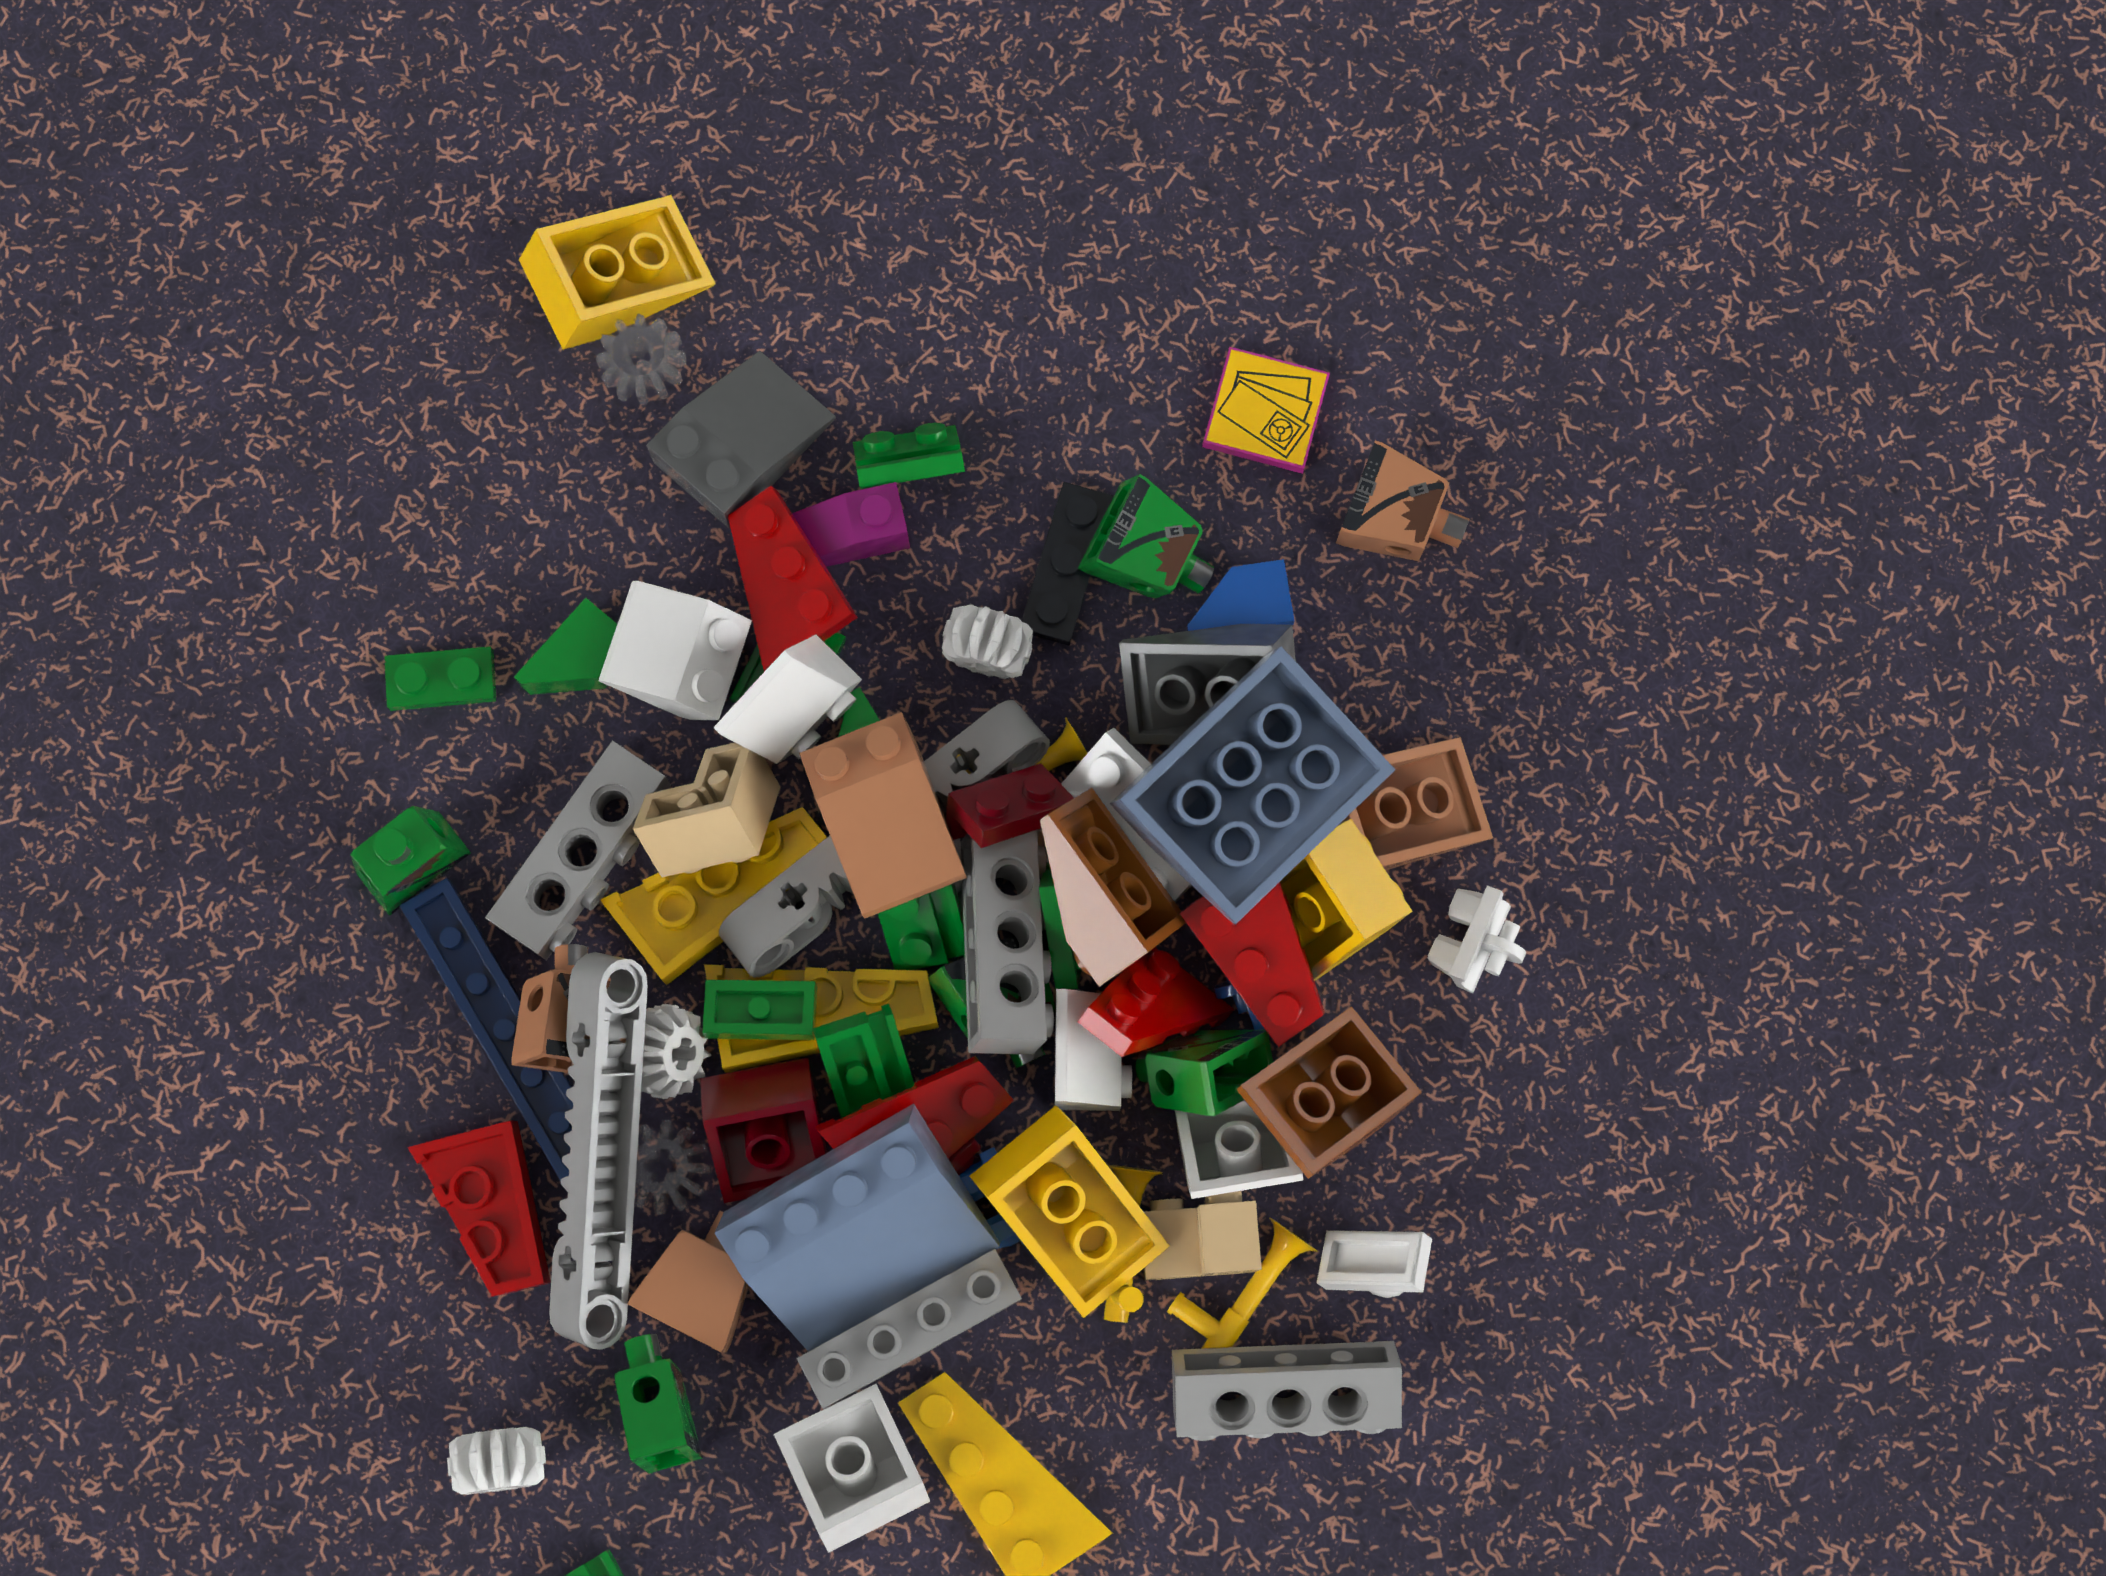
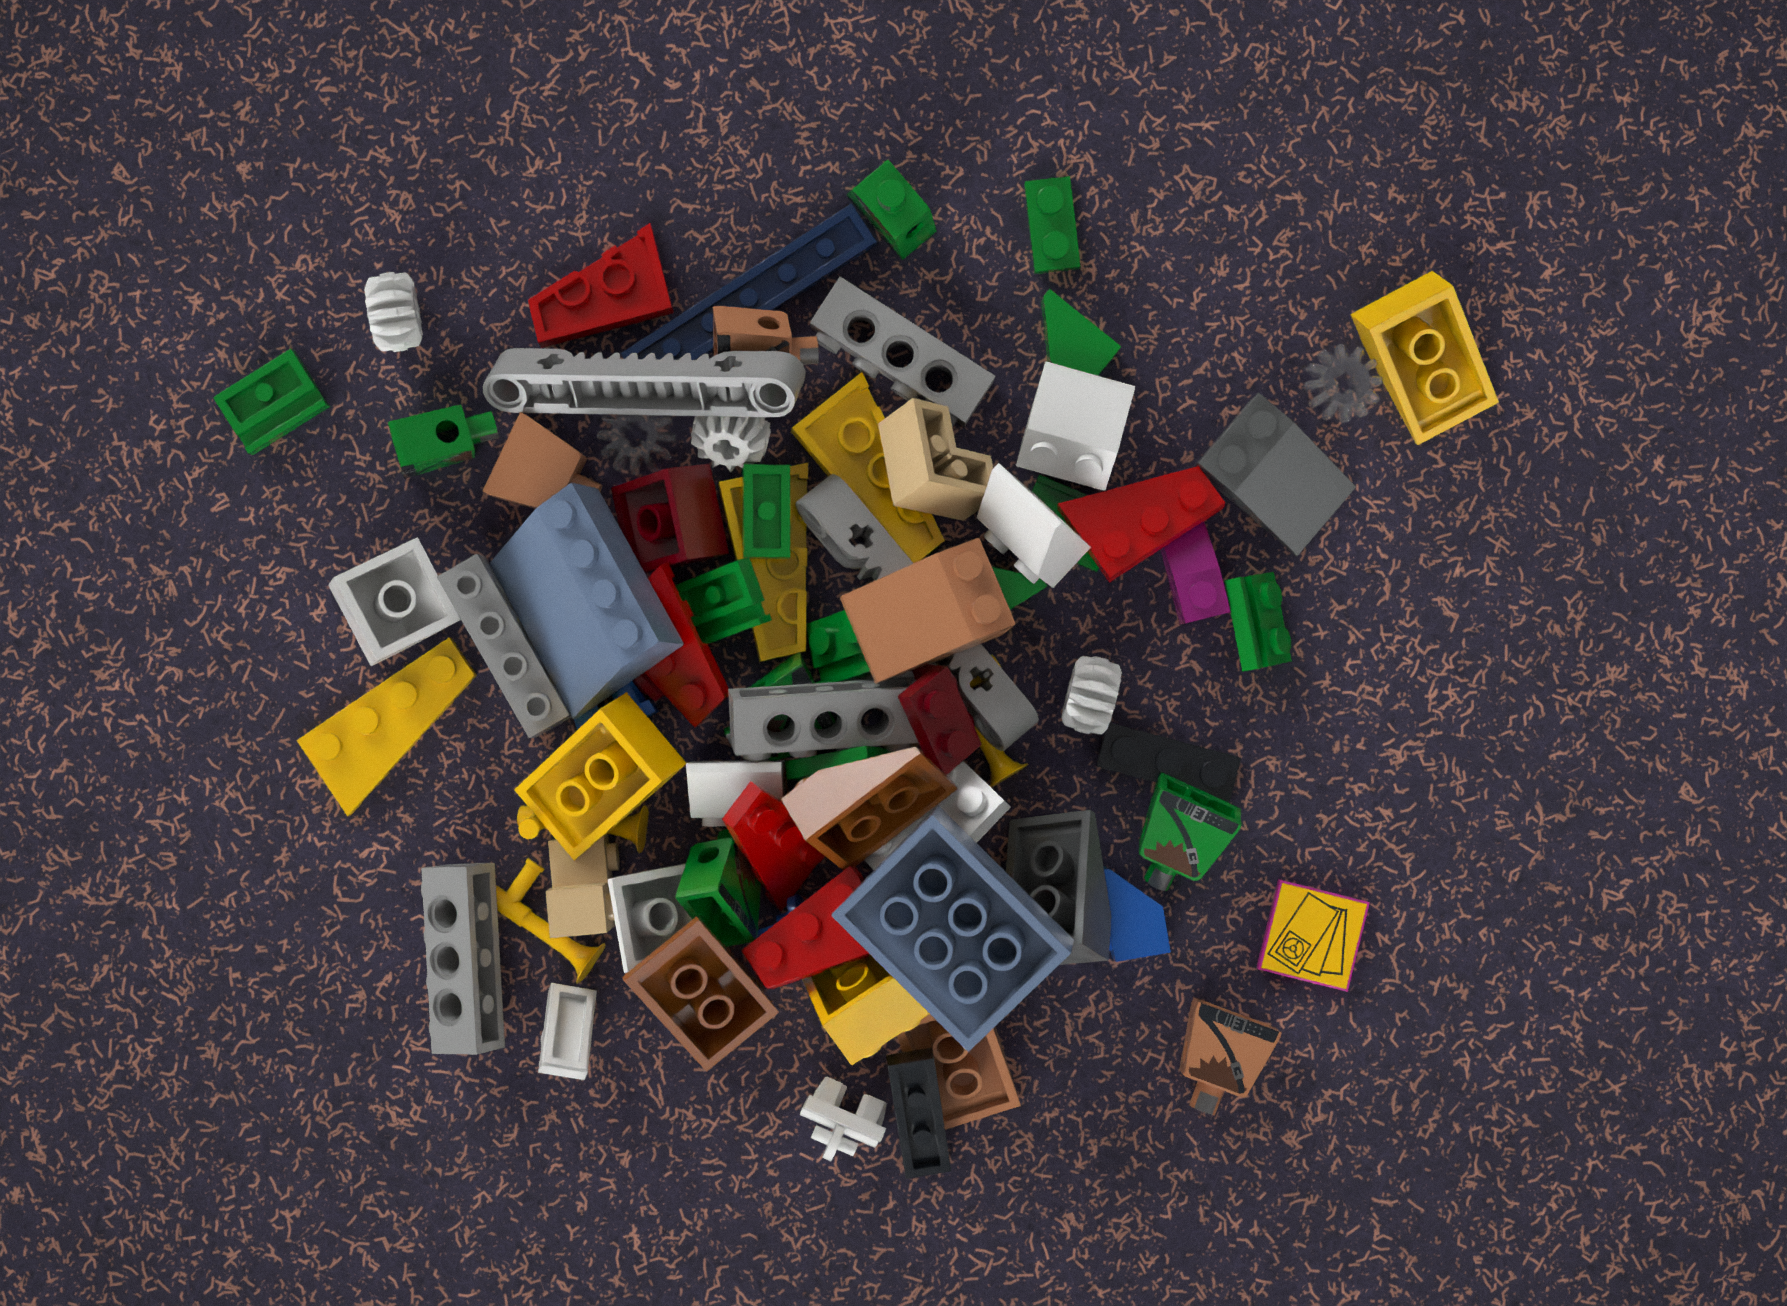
camera: 90 degrees right, 10 degrees up
(1468, 847) = (918, 1113): none -> black plate

